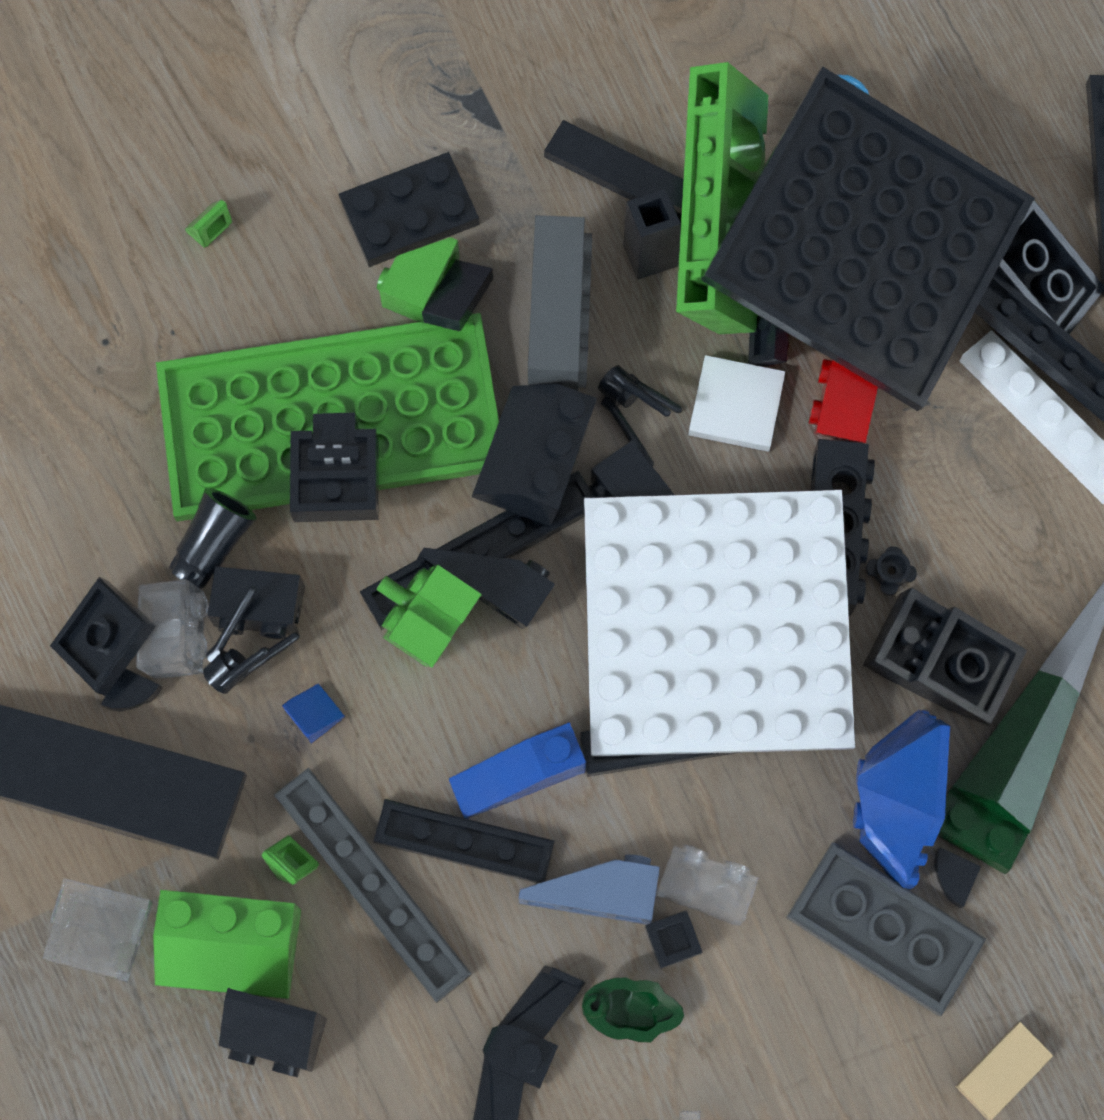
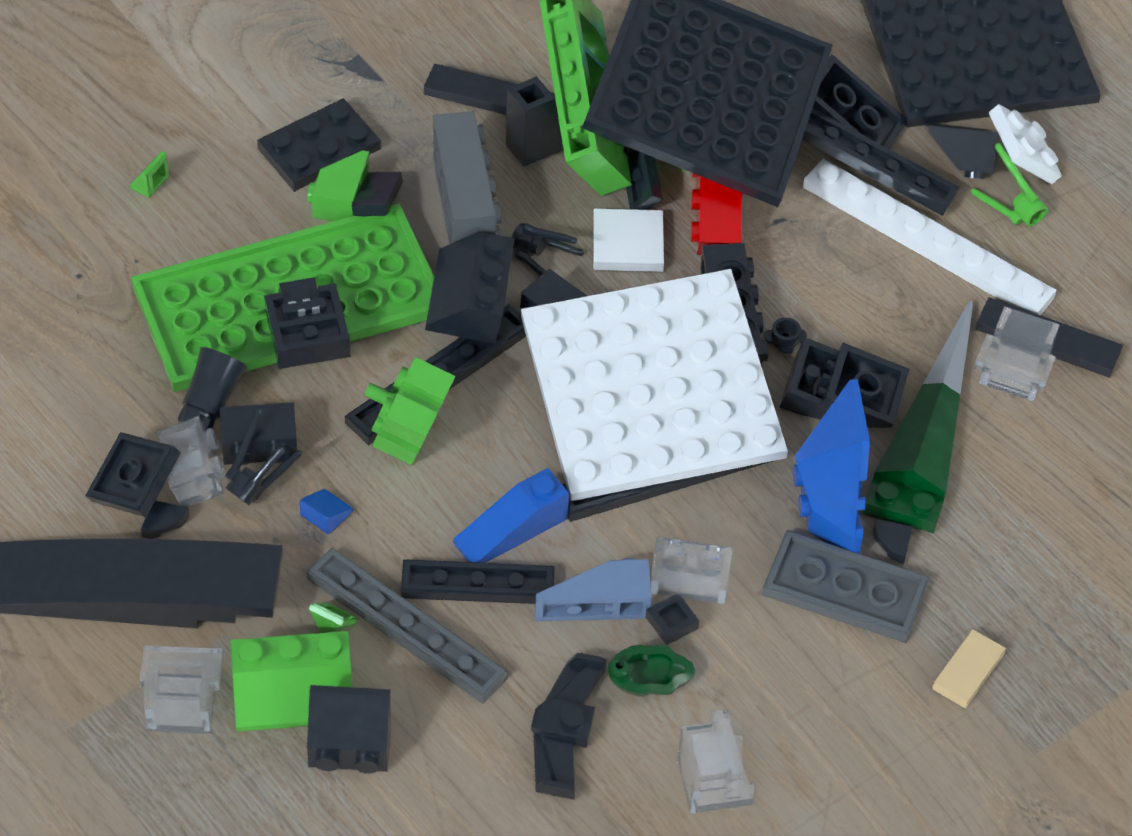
camera: 15 degrees left, 20 degrees down
(505, 584) = (474, 390): black slope -> none

